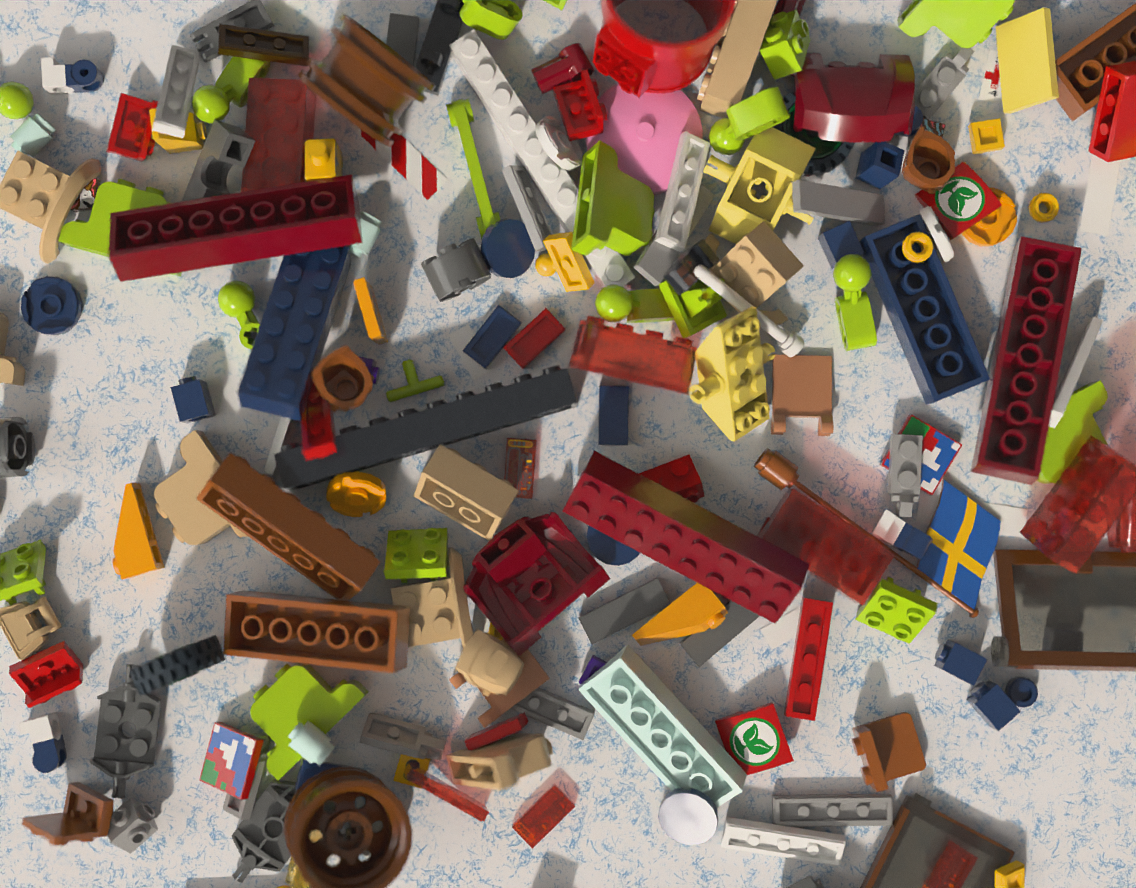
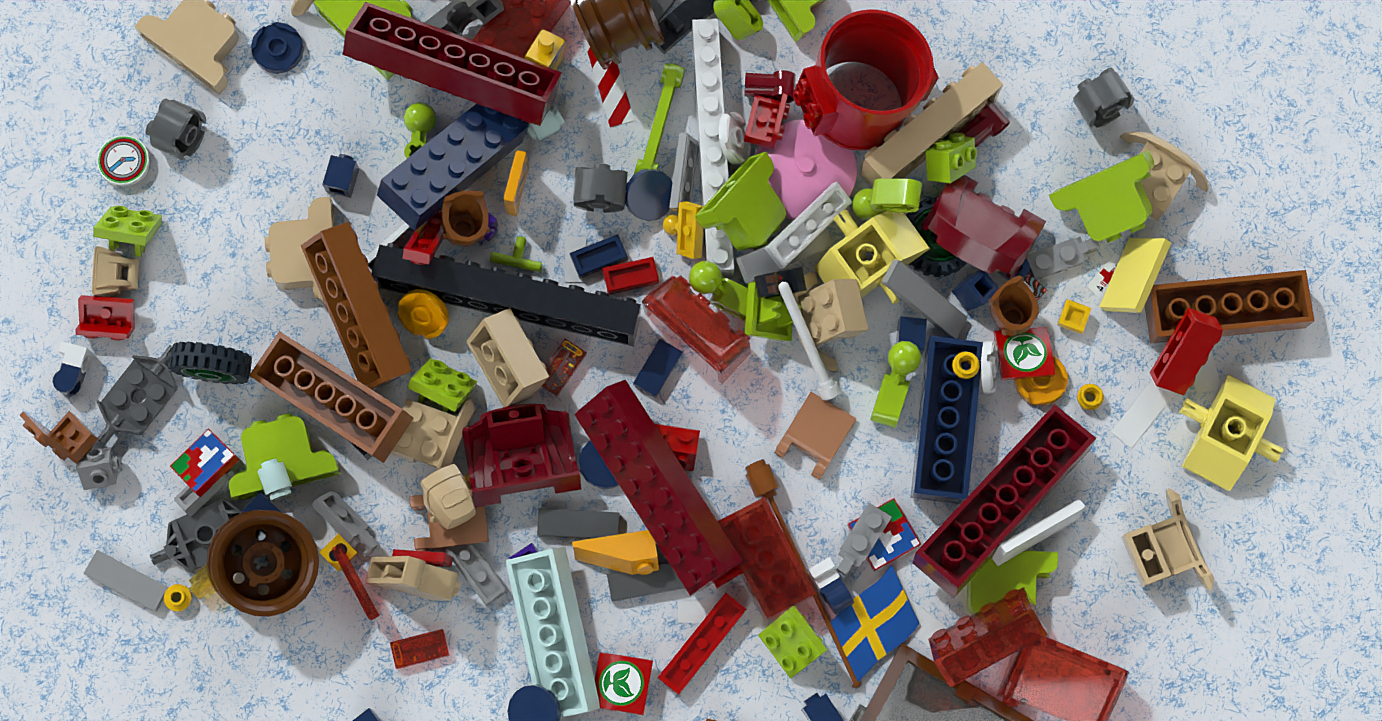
camera: 30 degrees right, 10 degrees down
(135, 540) = (233, 255): light orange slope -> none
(733, 375) = (767, 383): light yellow slope -> none

